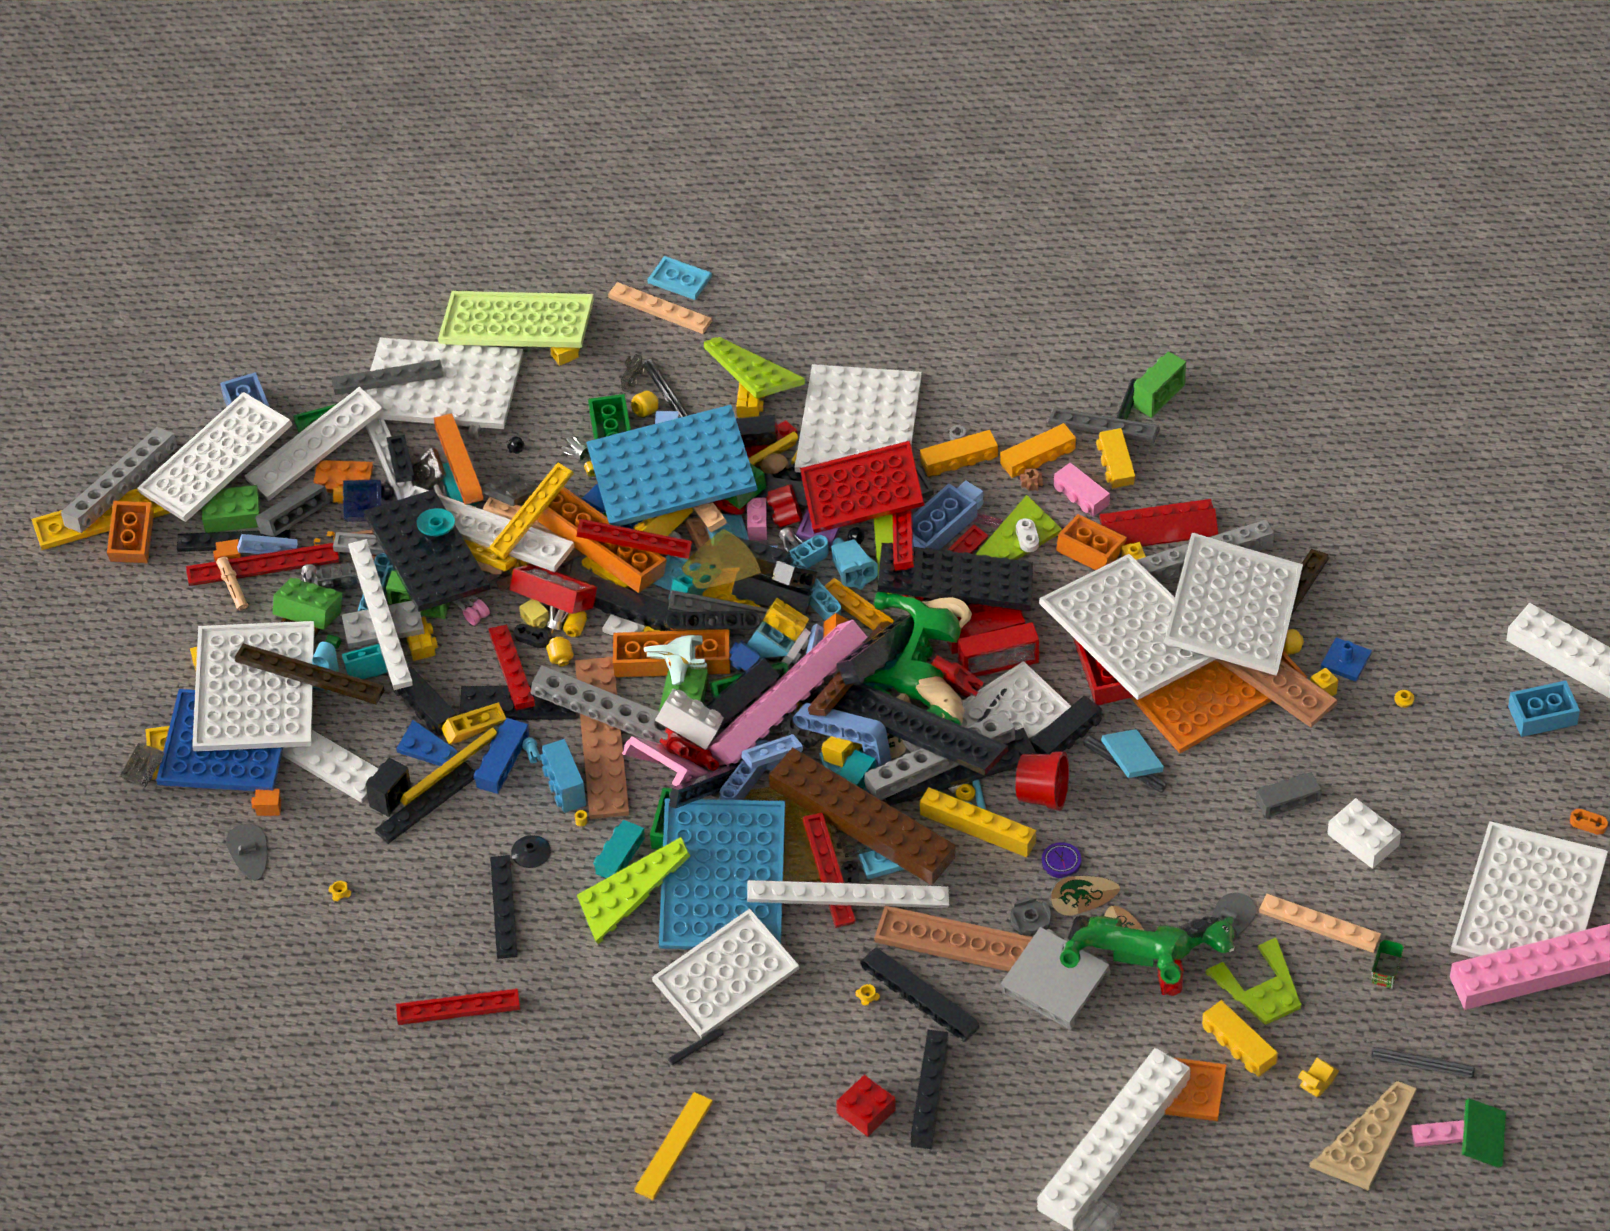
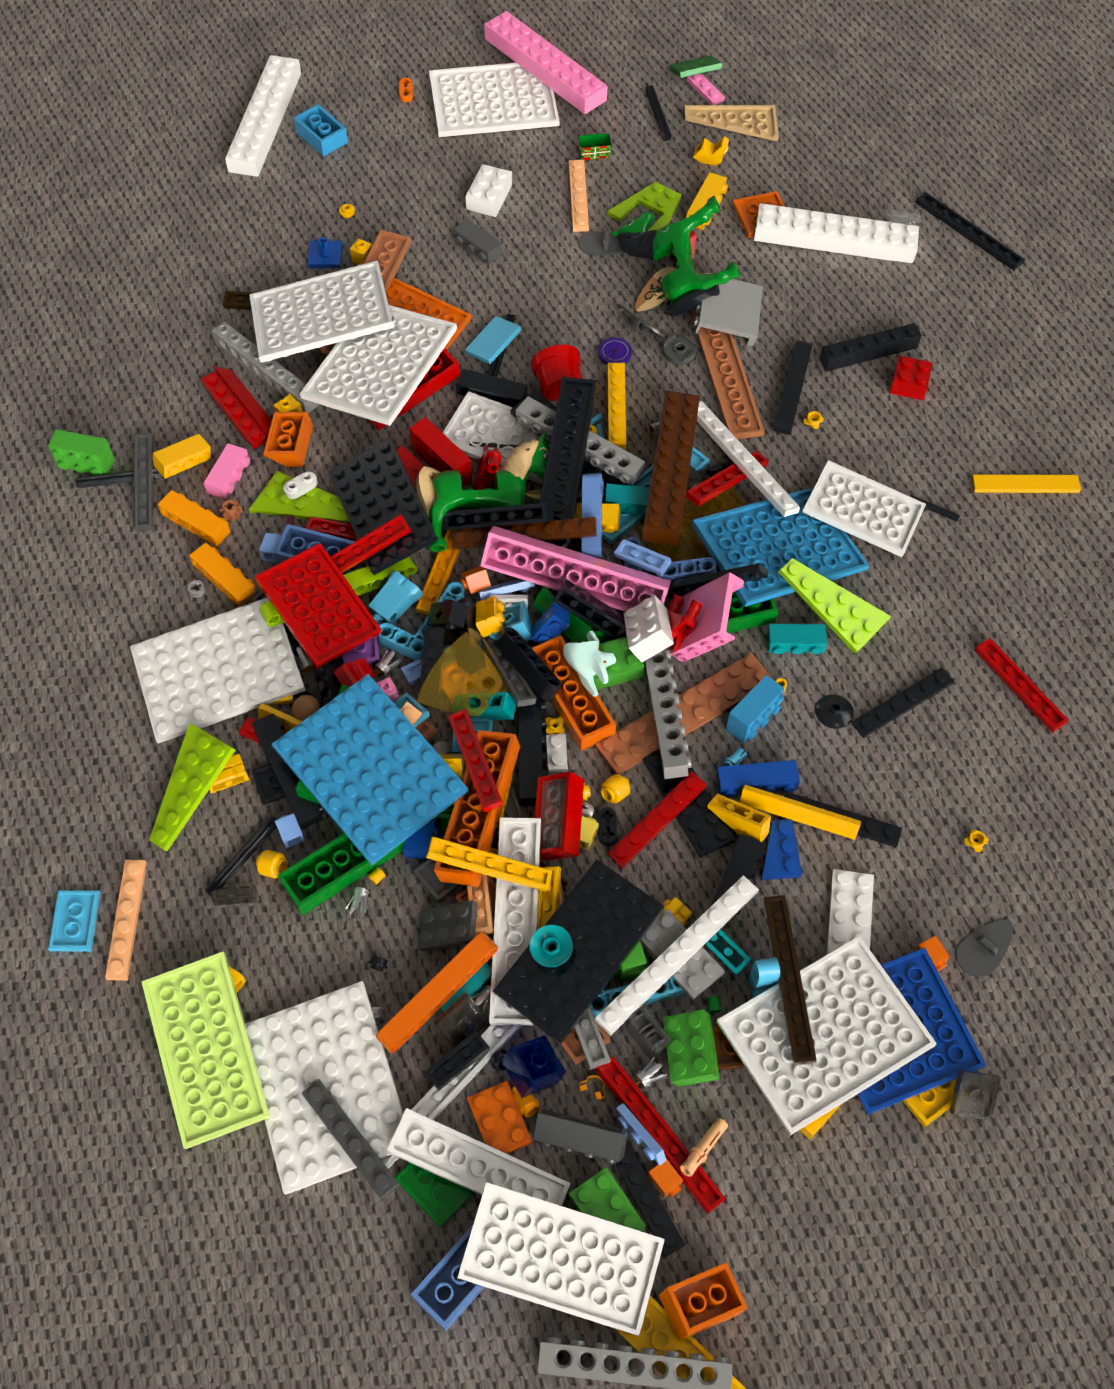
camera: 120 degrees left, 10 degrees up
(388, 786) = (856, 847): black brick -> none

